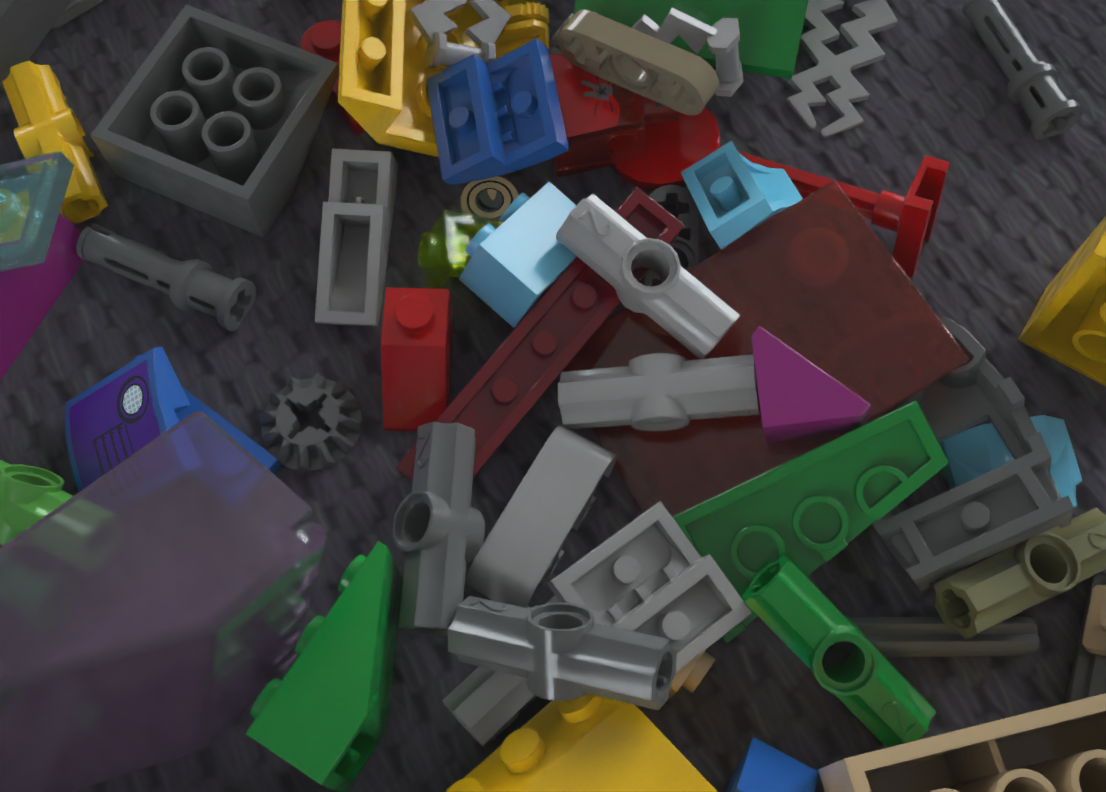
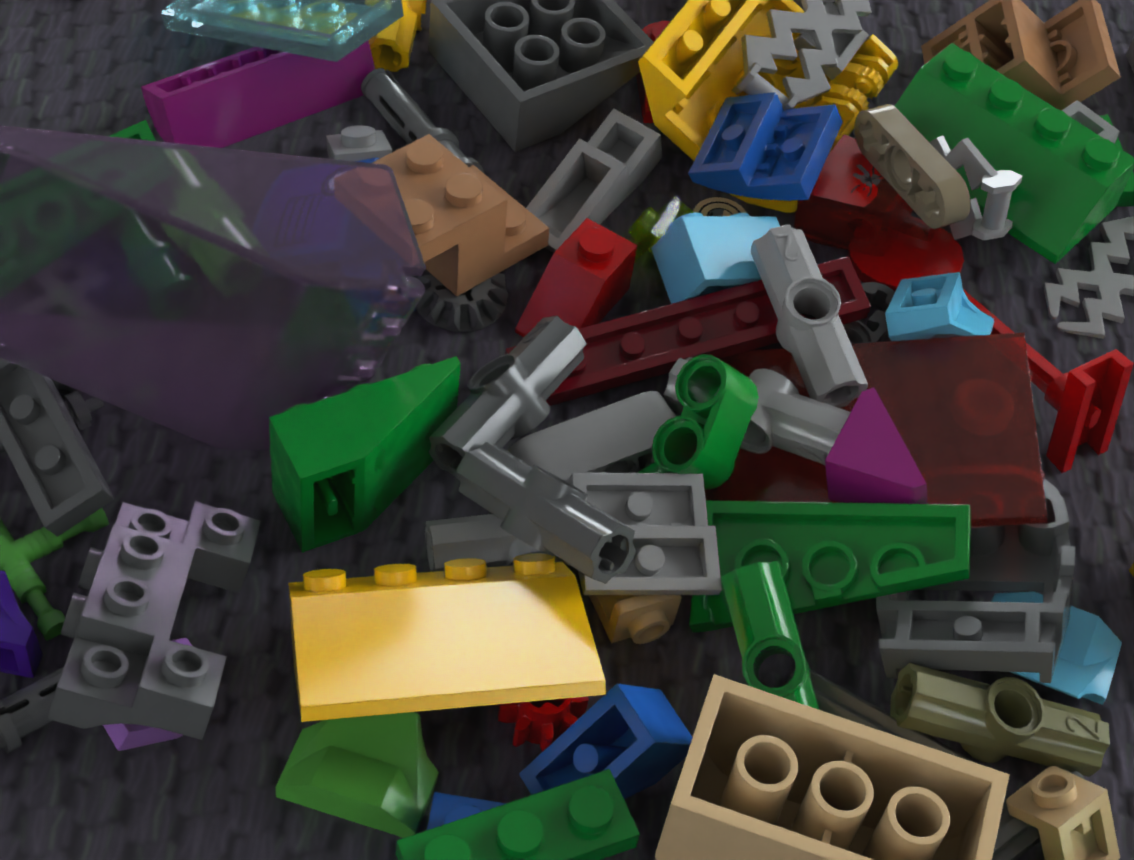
camera: 25 degrees right, 15 degrees down
(123, 330) = (358, 144): none -> light grey plate
(251, 368) = (461, 216): none -> medium nougat bracket
(641, 449) = (706, 423): none -> green beam

